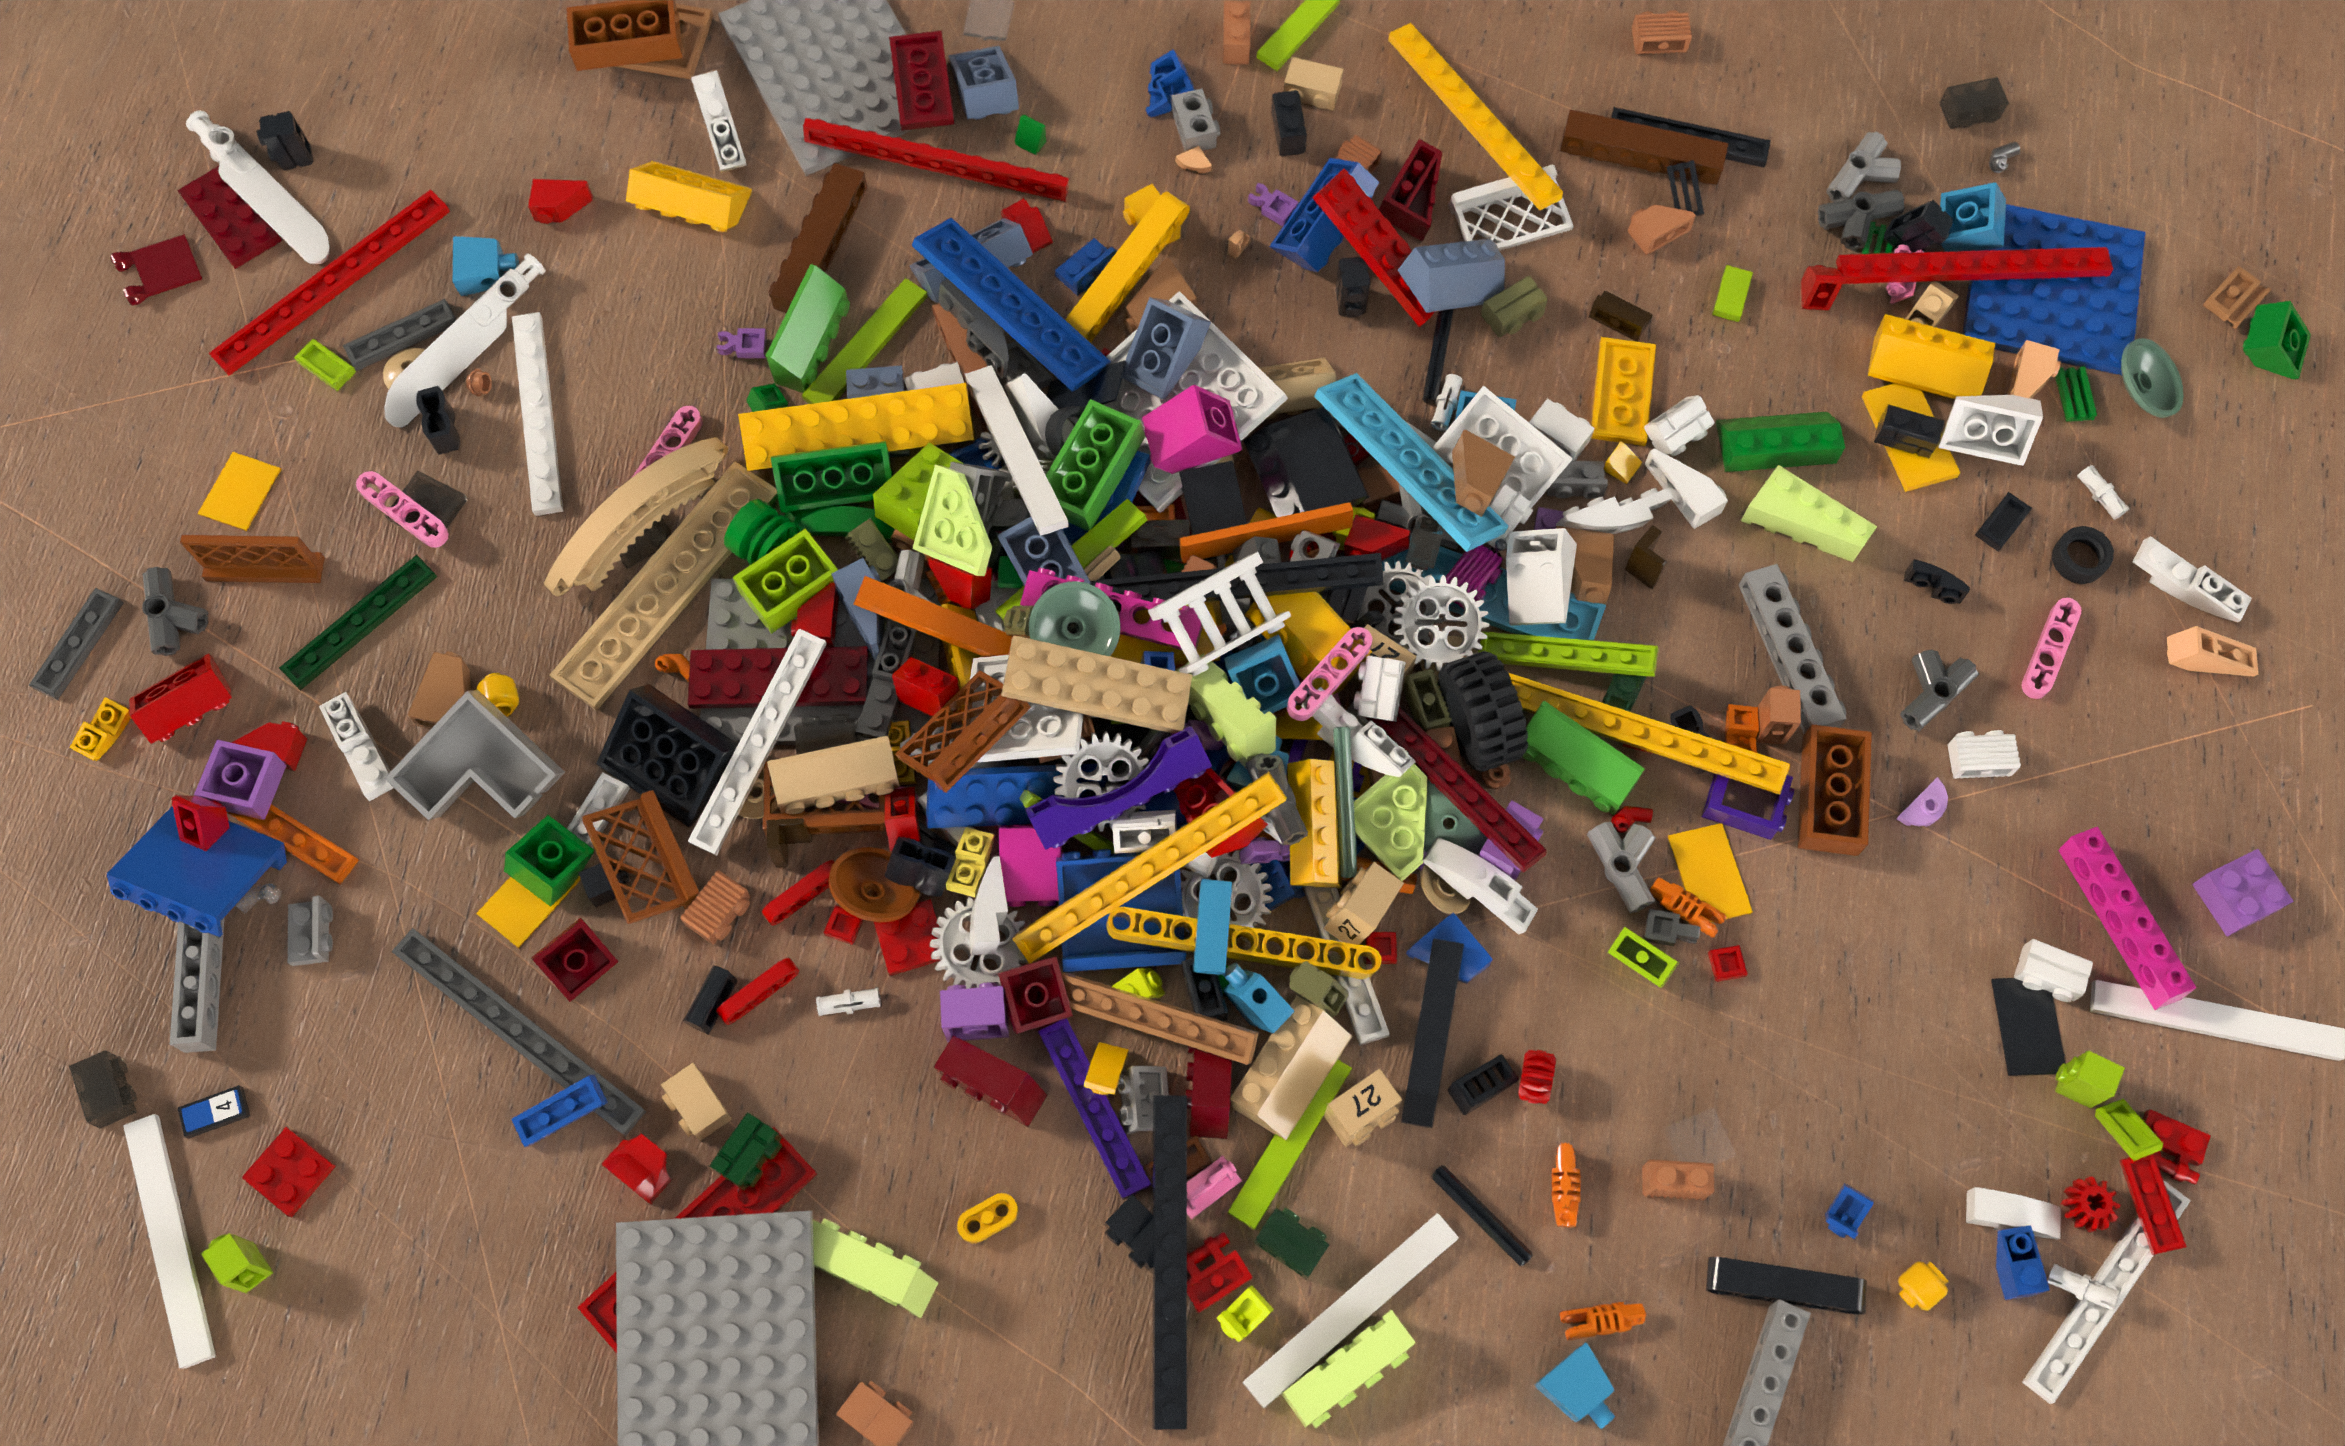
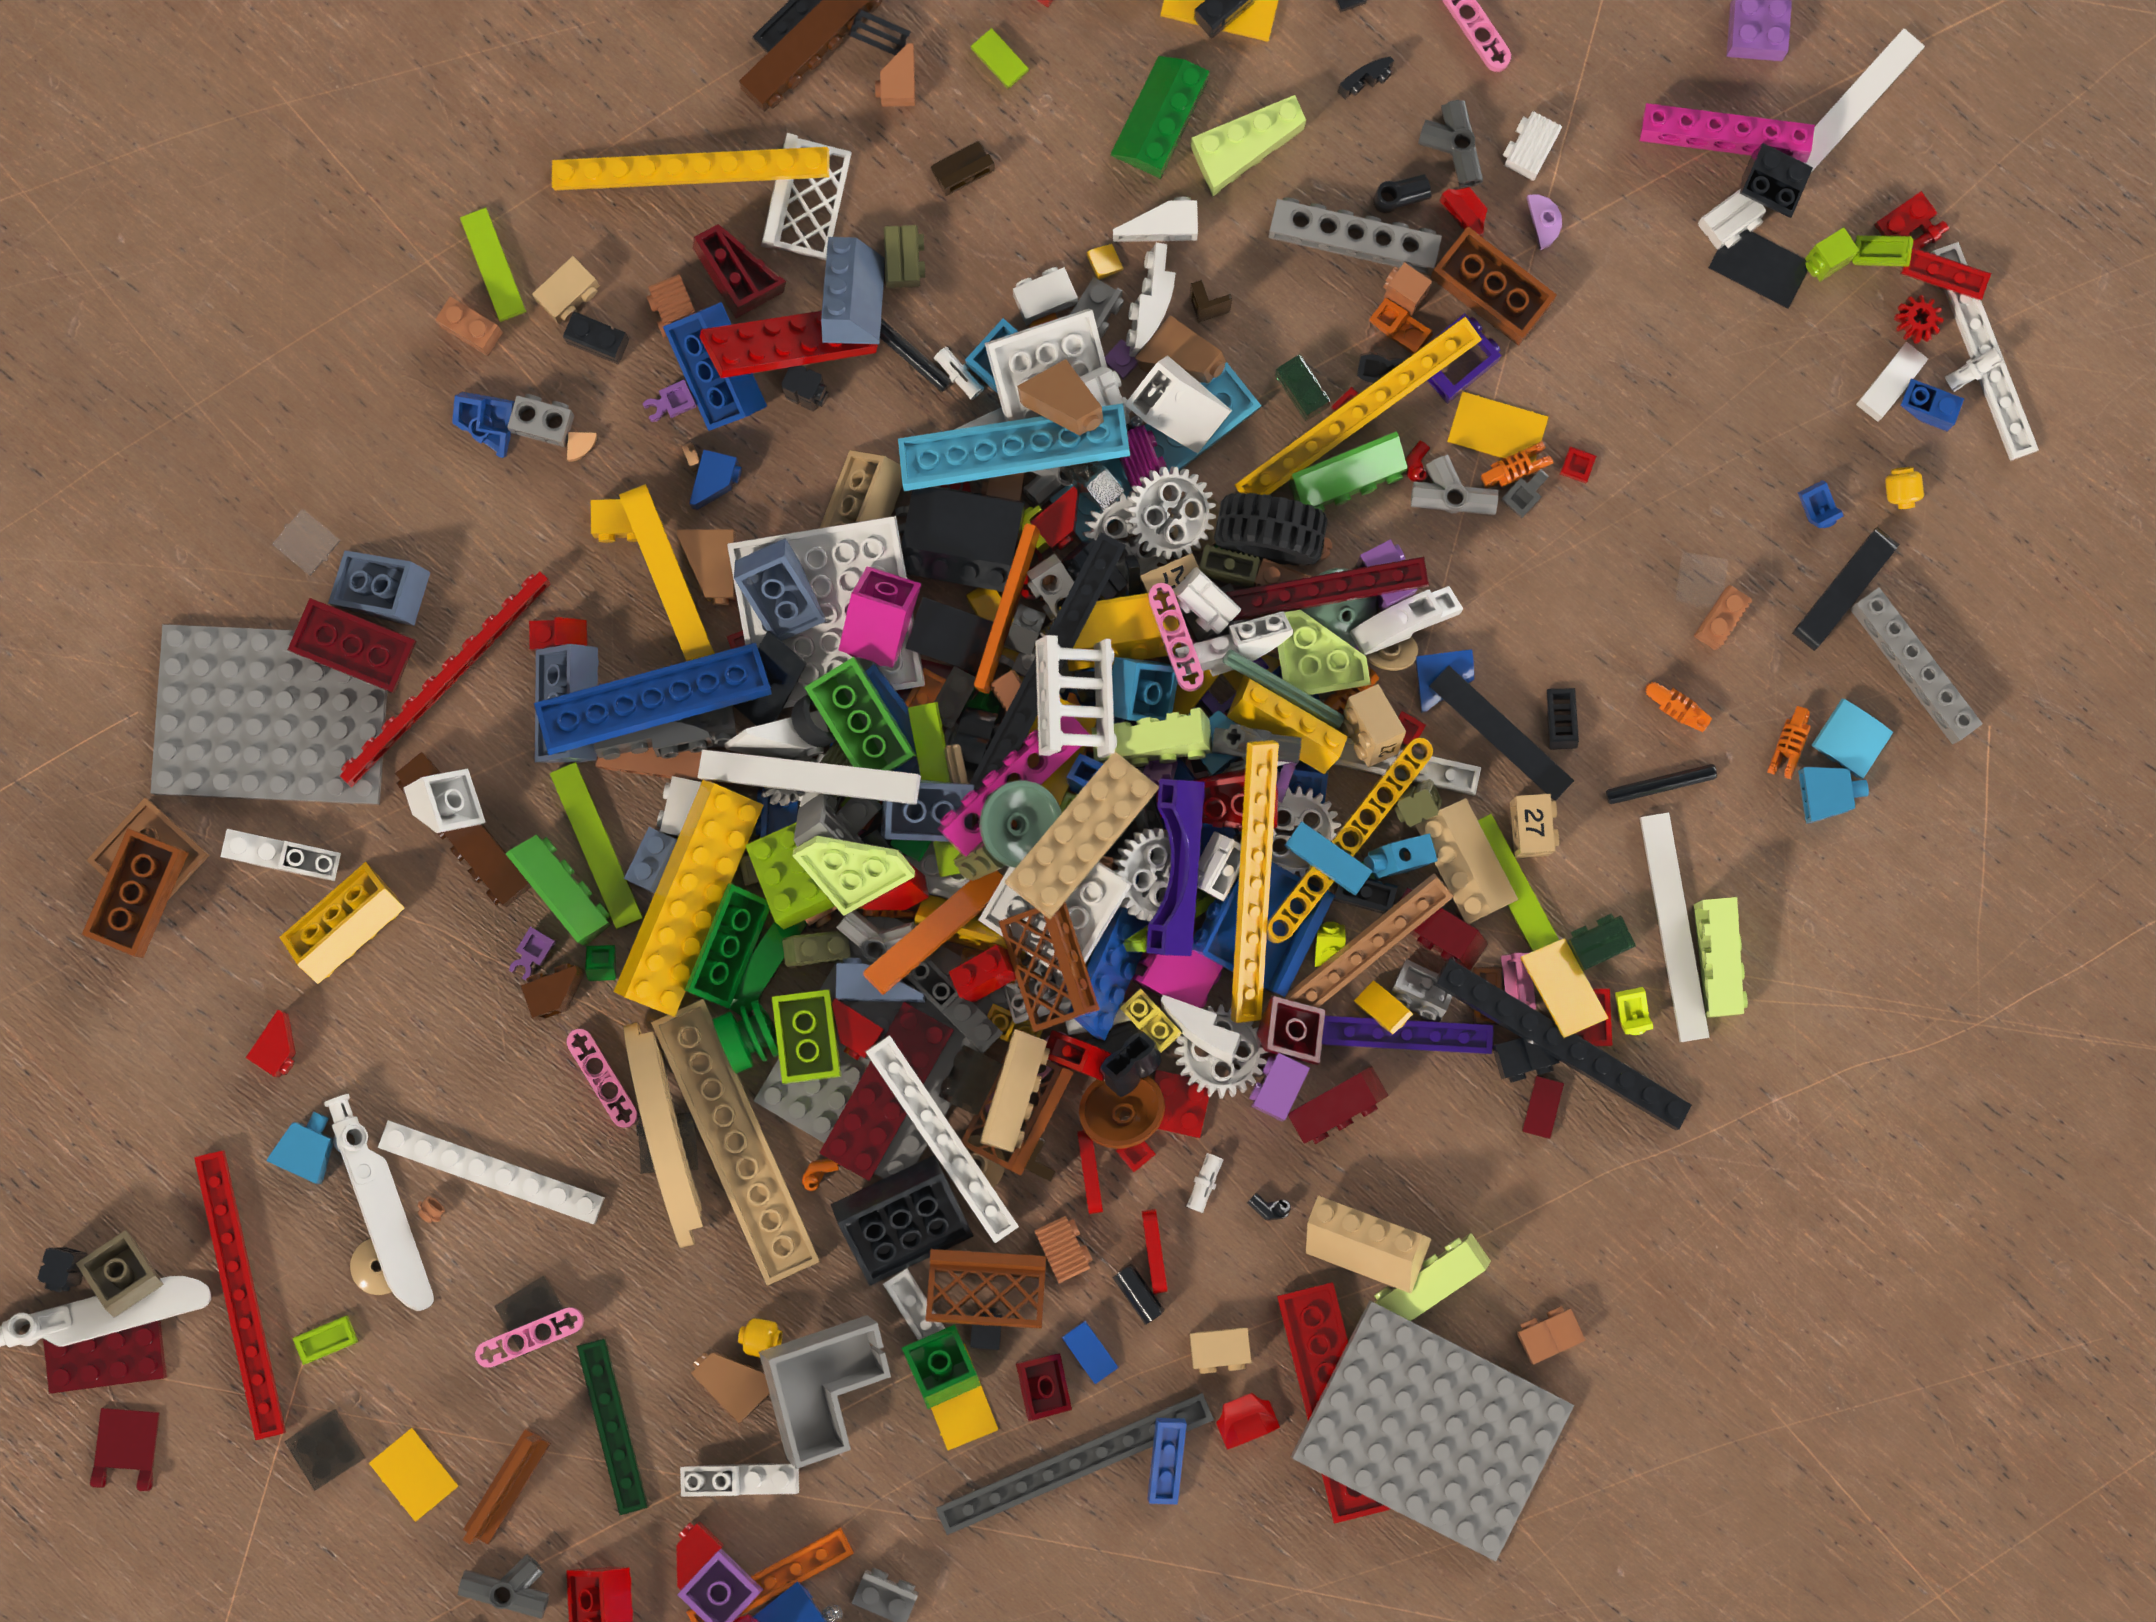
camera: 60 degrees left, 15 degrees up
(226, 410) = (325, 1449): none -> clear smoke plate
(300, 182) = (119, 1274): none -> dark tan brick
(400, 335) = (333, 1257): dark grey tile -> none
(438, 420) = (461, 1266): black brick -> none
(632, 986) = (1090, 1352): none -> blue slope
(715, 369) = (552, 993): none -> reddish brown slope
(747, 1152) = (1290, 1328): dark green brick -> none
(831, 203) = (445, 801): none -> white slope
(855, 1076) = (1270, 1210): none -> black arm
(868, 1178) = (1365, 1244): none -> tan slope
(986, 1216) = (1446, 1167): yellow plate -> none
(1030, 135) = (464, 578): green slope -> none
(1084, 266) = (633, 605): blue bracket -> none
(1099, 1281) = (1542, 1107): none -> dark red tile
(1225, 1229) = (1564, 988): none -> yellow window
(1230, 266) = (714, 478): none -> blue slope
(1537, 1076) = (1584, 674): red gear -> none
(1572, 654) = (1256, 421): lime tile -> none
(1623, 391) = (1035, 214): yellow tile -> none
(1643, 957) = (1539, 530): lime brick -> none
(1646, 1380) = (1852, 738): none -> medium azure slope
(1679, 425) = (1101, 192): white brick -> none
(1860, 669) = (1404, 193): none -> black piece
(1885, 728) = (1465, 208): none -> red slope
(2119, 982) = (1775, 179): none -> black slope

